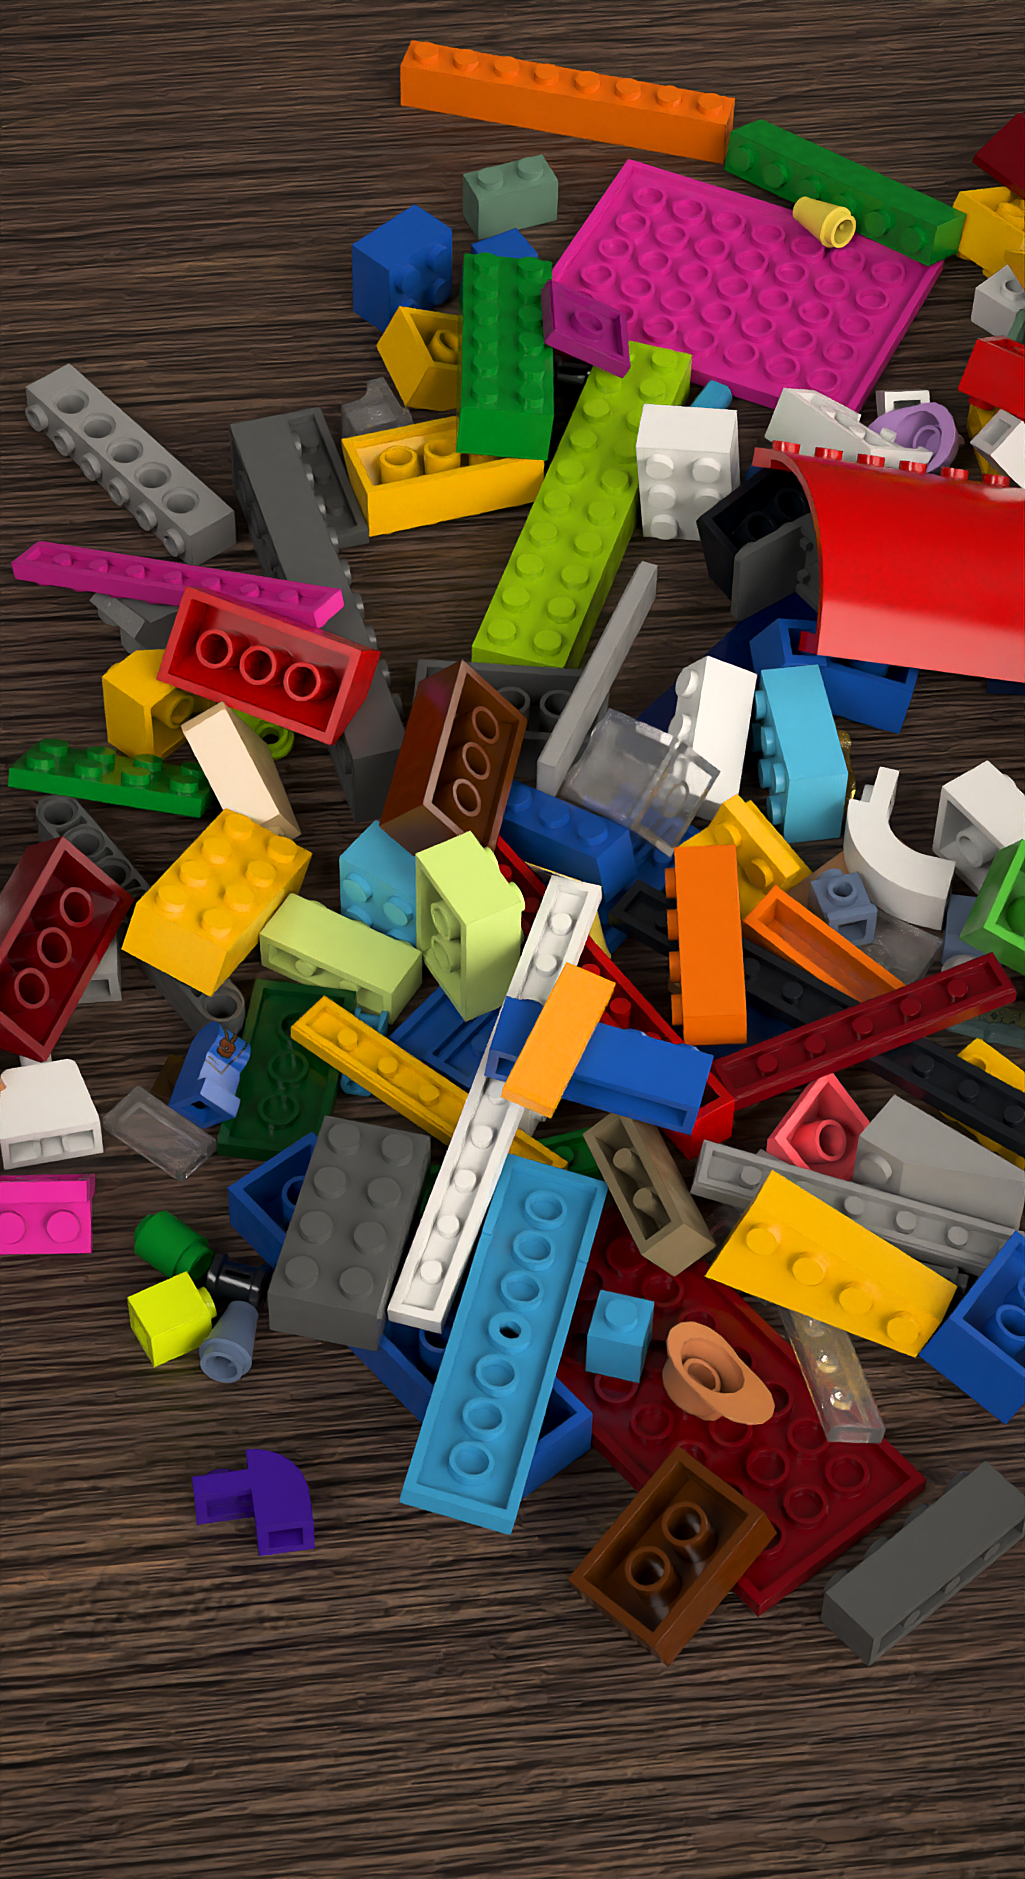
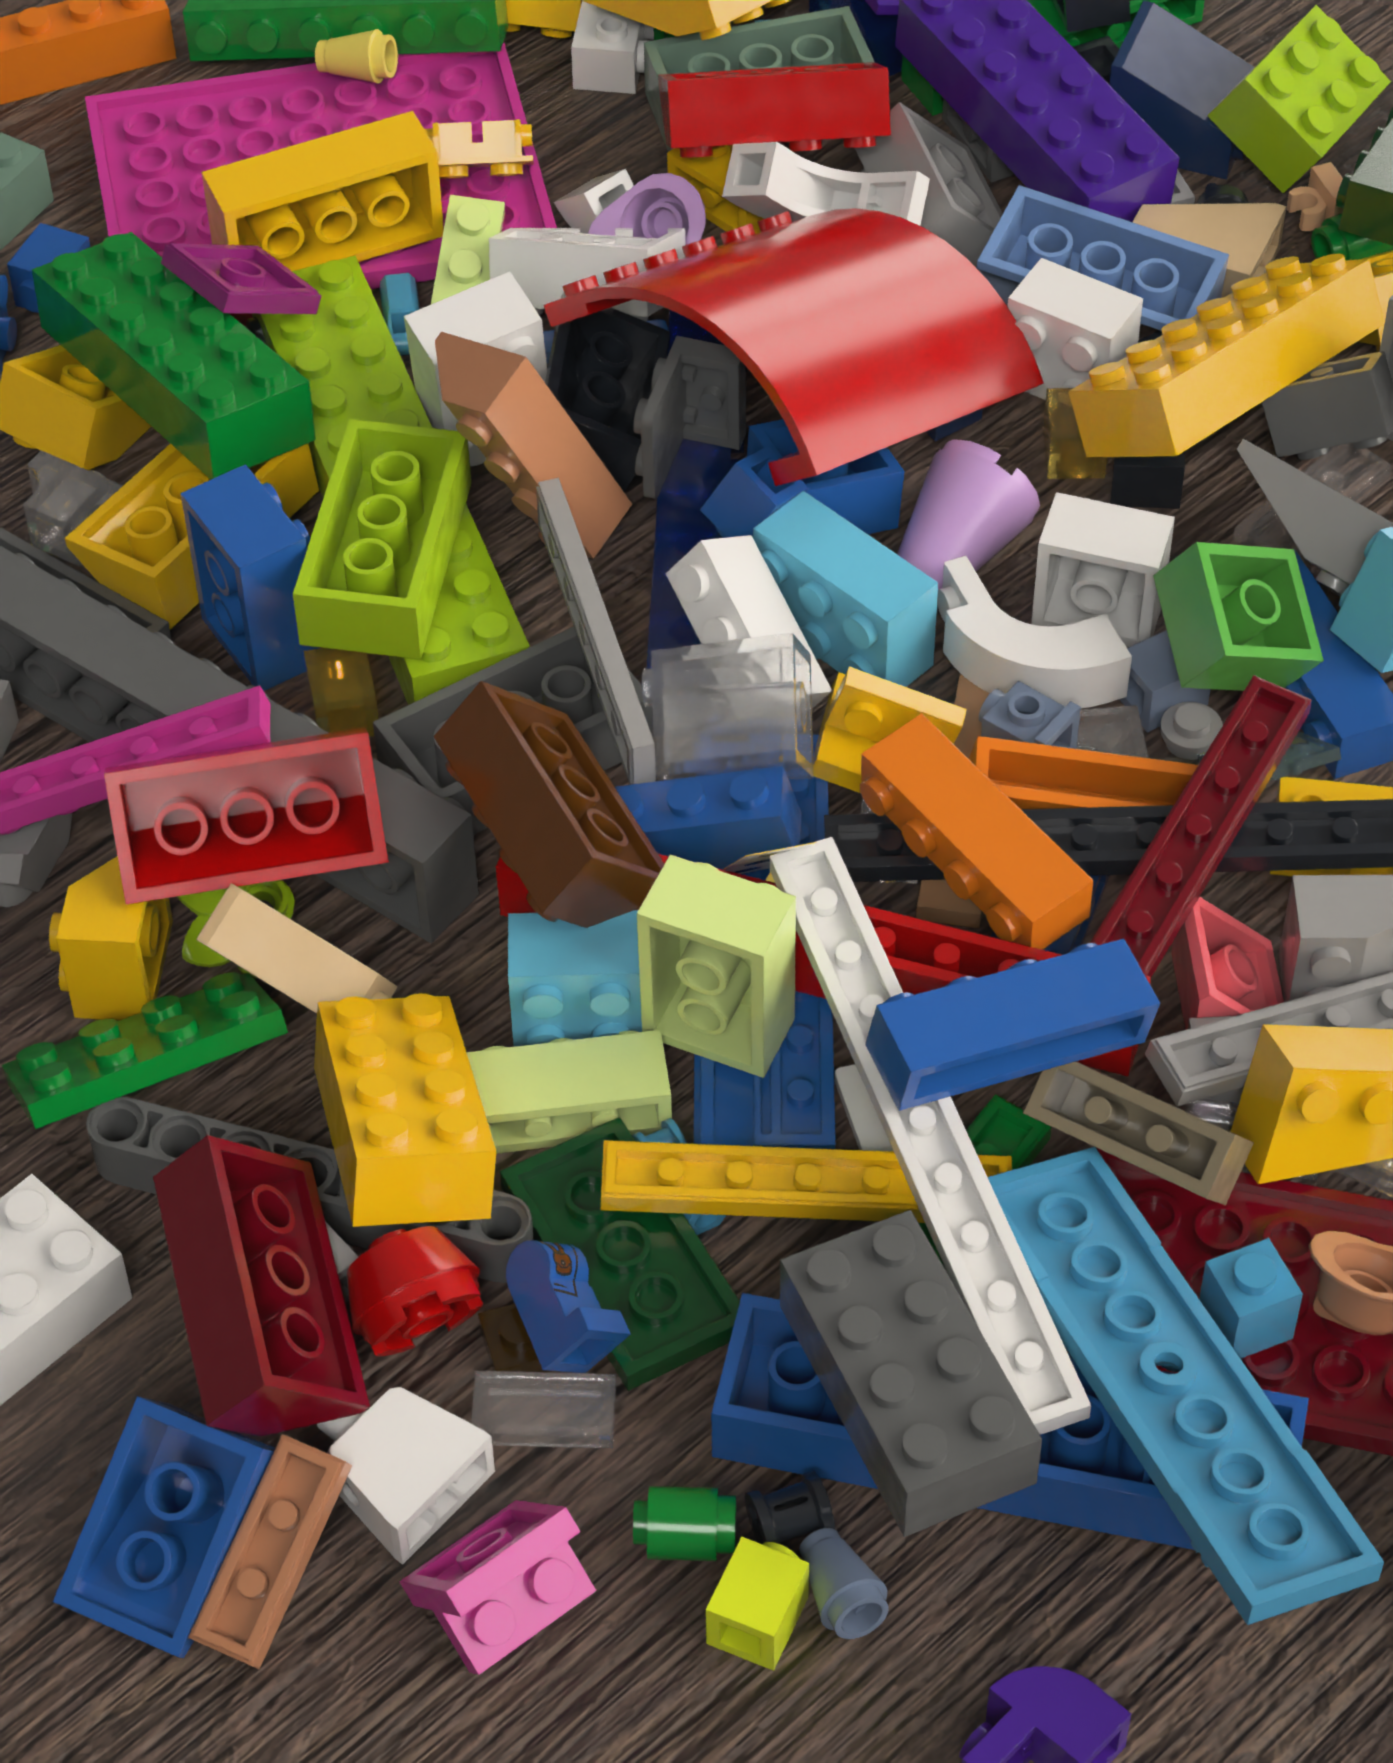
camera: 35 degrees left, 0 degrees up
(132, 1010) = (409, 1288): none -> red cone
(426, 527) = (246, 573): none -> blue brick
(434, 631) = (341, 690): none -> clear yellow brick
(515, 543) = (383, 539): none -> lime brick
(558, 1040) = (975, 1018): light orange tile -> none
(662, 536) = (527, 435): none -> nougat slope
(700, 305) = (332, 195): none -> yellow brick
(759, 401) = (465, 244): none -> yellowish green plate
(824, 319) = (499, 150): none -> yellow hinge
(928, 747) = (966, 509): none -> lavender cone

